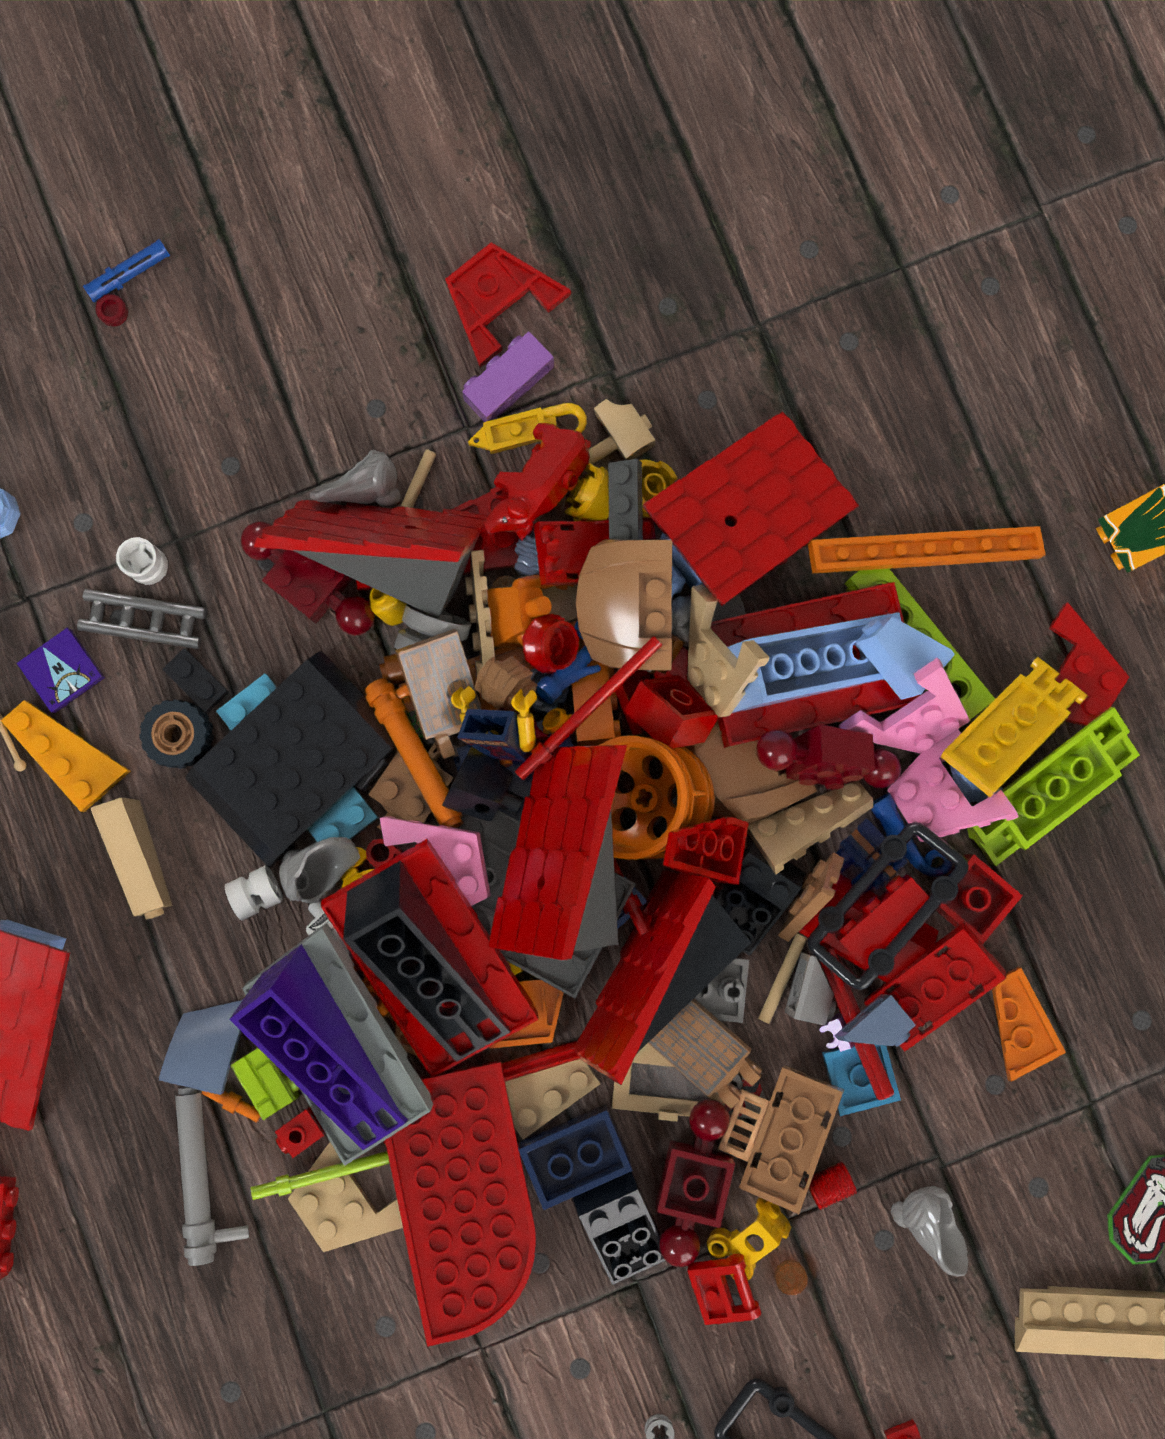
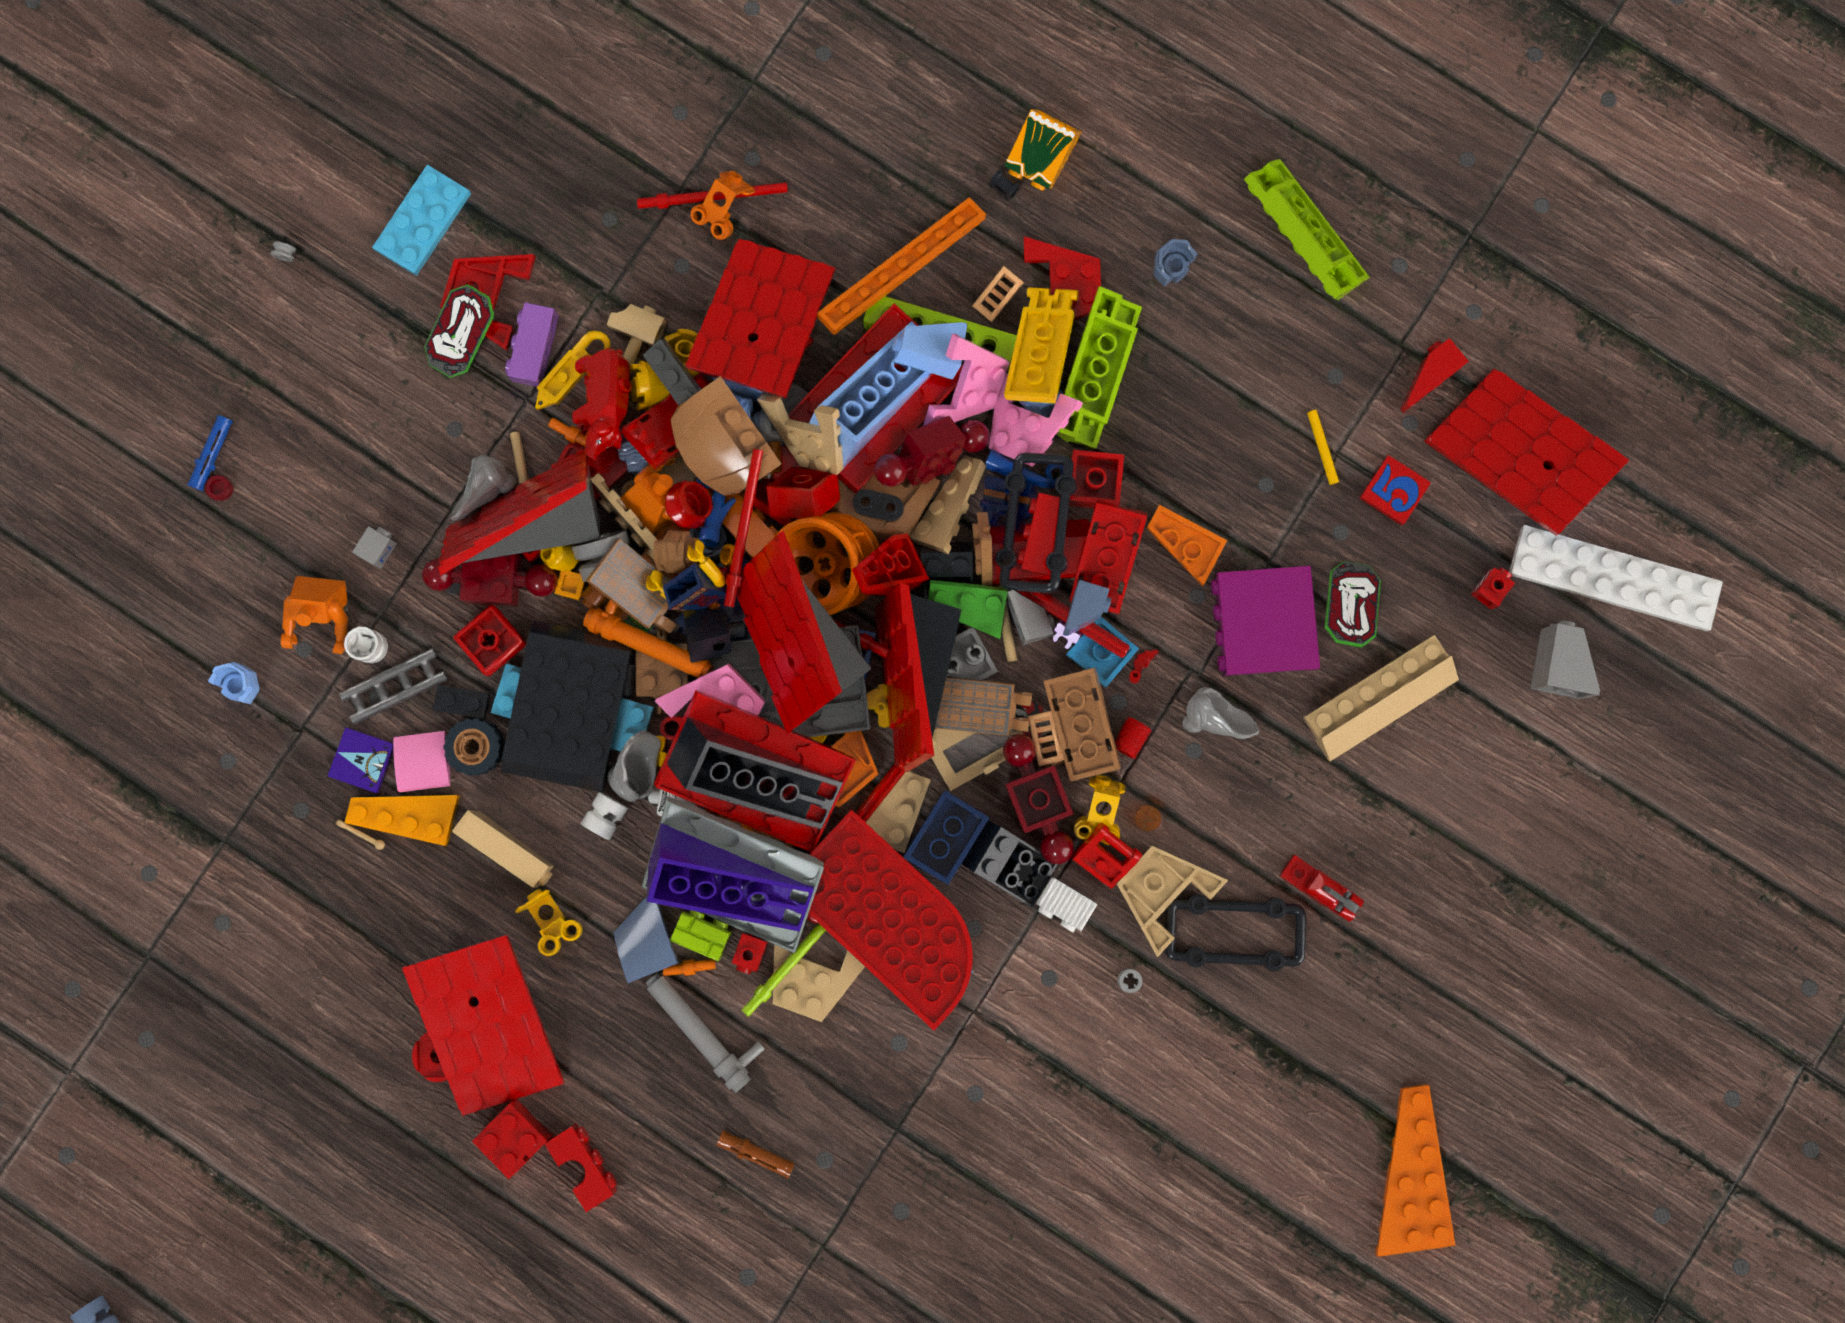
camera: 30 degrees left, 0 degrees up
(115, 712) = (421, 761): none -> bright pink slope
(123, 486) = (316, 602): none -> orange torso
(128, 968) = (553, 928): none -> yellow piece
(164, 1336) = (758, 1155): none -> dark orange pin
(218, 470) = (375, 546): none -> light grey brick
(250, 626) = (473, 640): none -> red brick
(332, 124) = (283, 251): none -> light grey bush
(380, 639) = (570, 585): none -> light orange plate
(446, 315) = (459, 331): none -> shield
(485, 491) = (571, 433): none -> orange bar
(486, 184) = (421, 220): none -> medium azure plate
(601, 971) = (877, 701): none -> yellow piece
(648, 1309) = (1065, 904): none -> white brick
(733, 323) = (663, 200): none -> red bar
(738, 775) = (877, 505): none -> black plate
(751, 1356) = (1155, 885): none -> tan wing
(772, 946) = (980, 604): none -> bright green wing
(811, 353) = (730, 185): none -> orange piece
(891, 1114) = (1141, 663): none -> red piece
(1027, 635) = (1004, 272): none -> light nougat slope
(1049, 1164) = (1265, 621): none -> magenta panel
(1084, 537) = (1005, 184): none -> black bush

